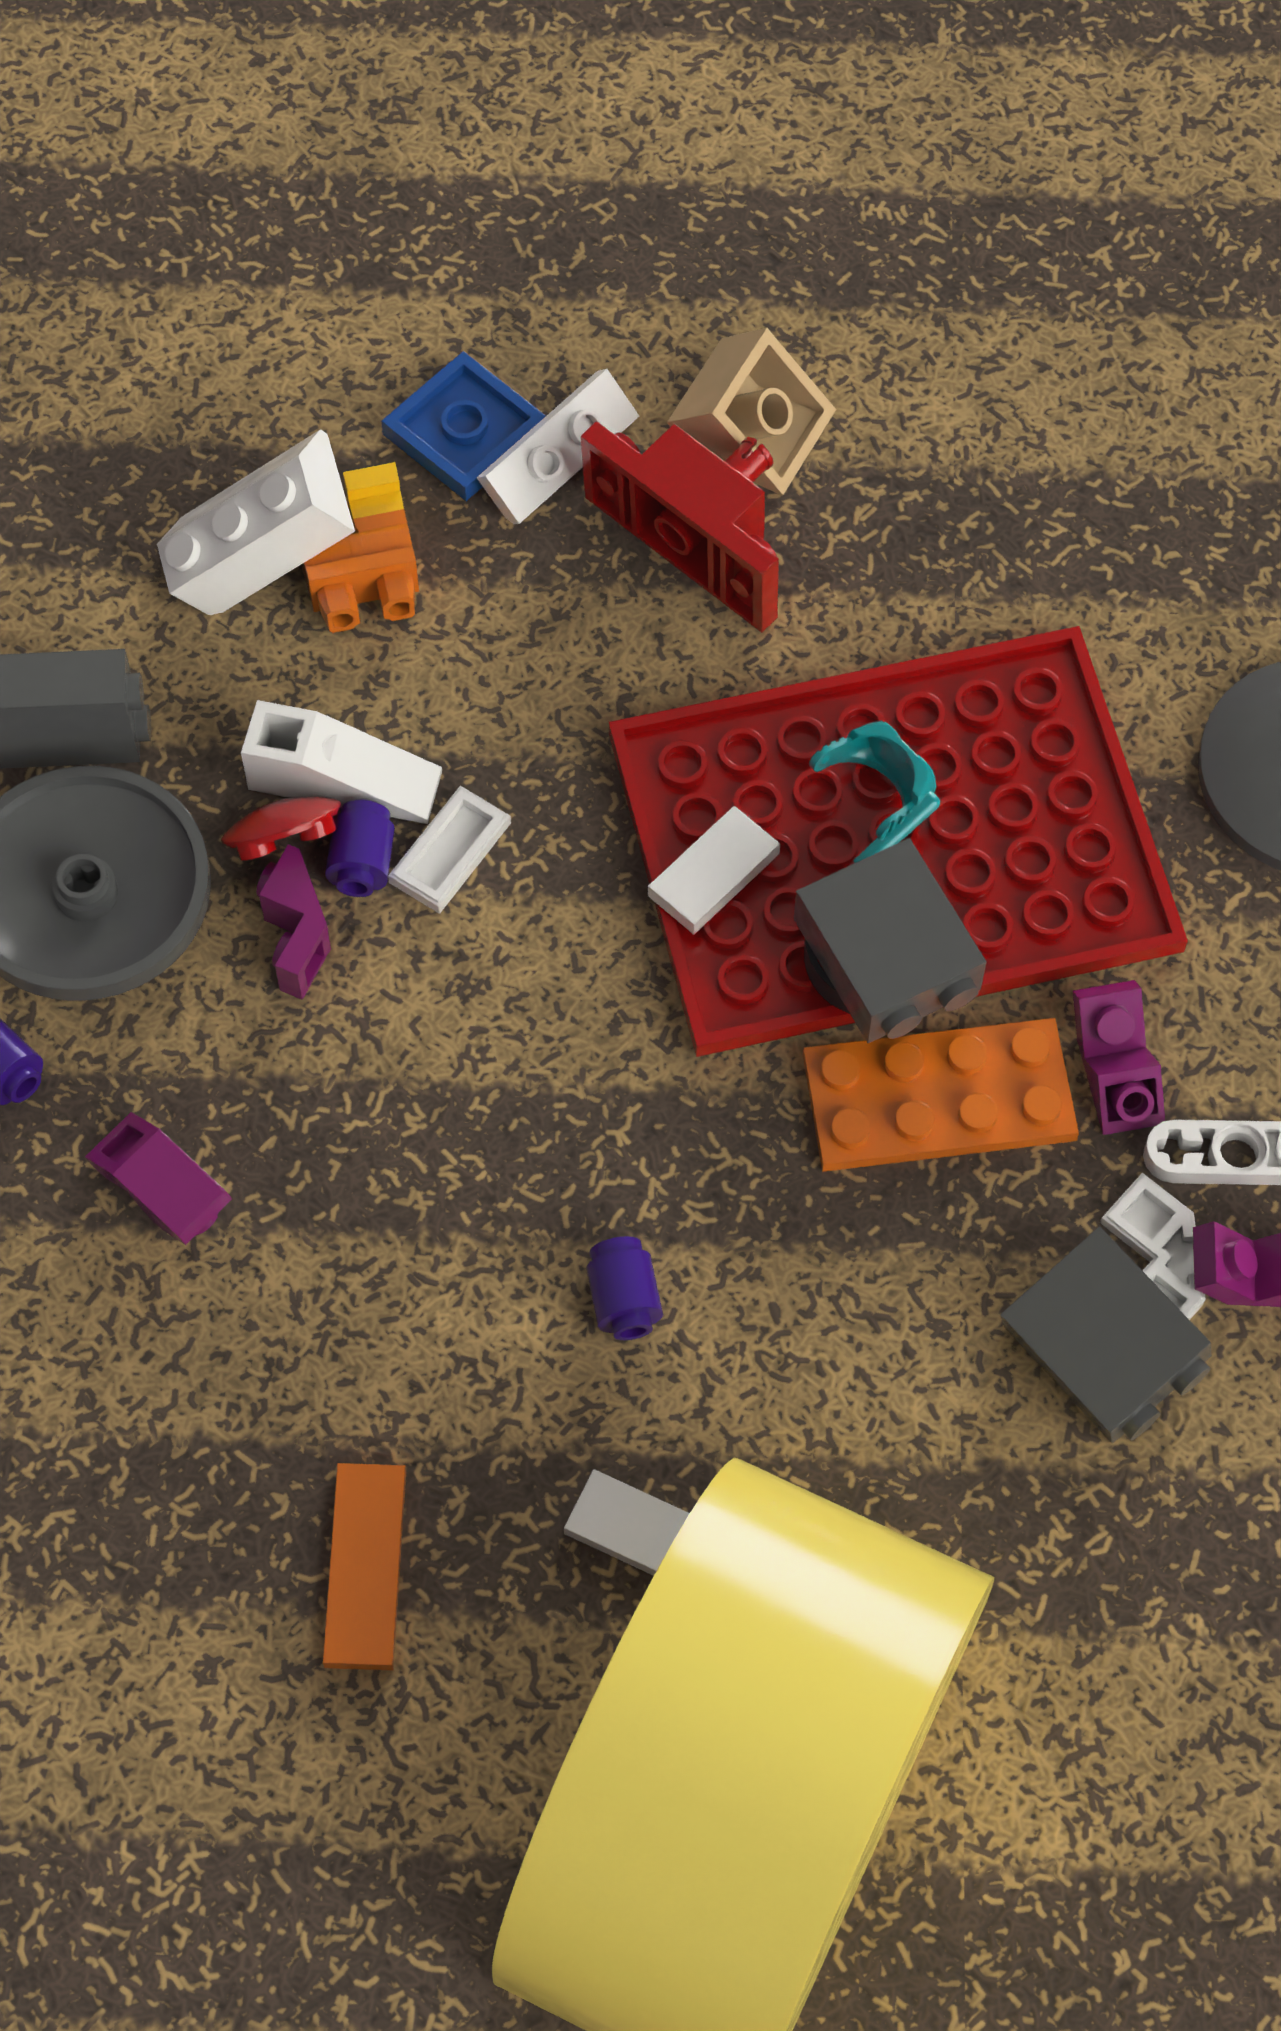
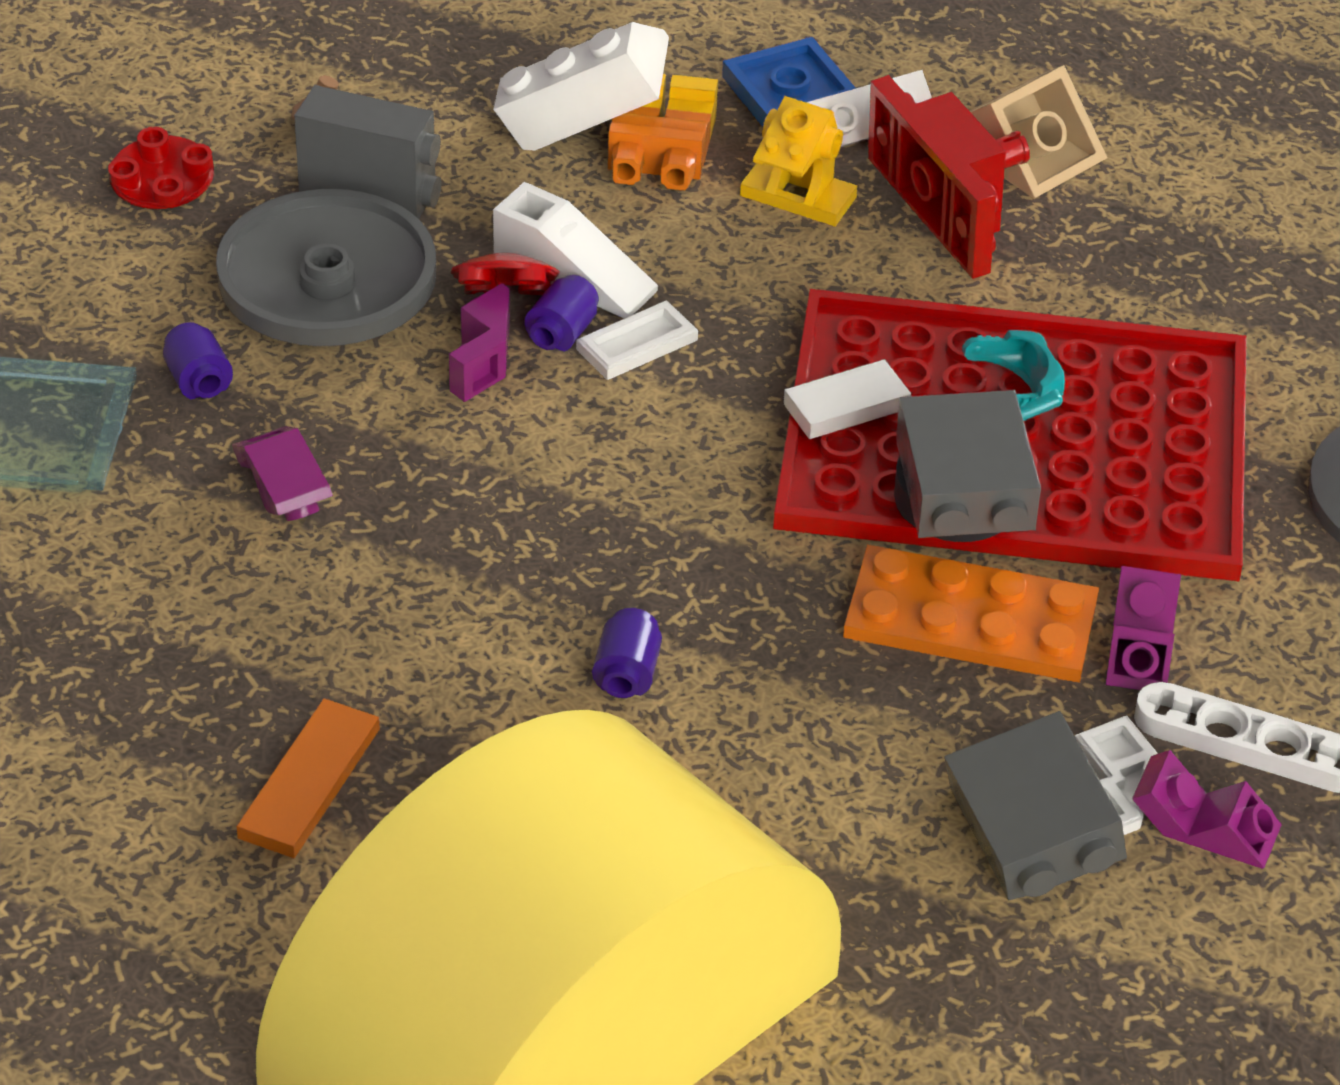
camera: 20 degrees right, 20 degrees down
(532, 557) = (800, 150): none -> yellow tile

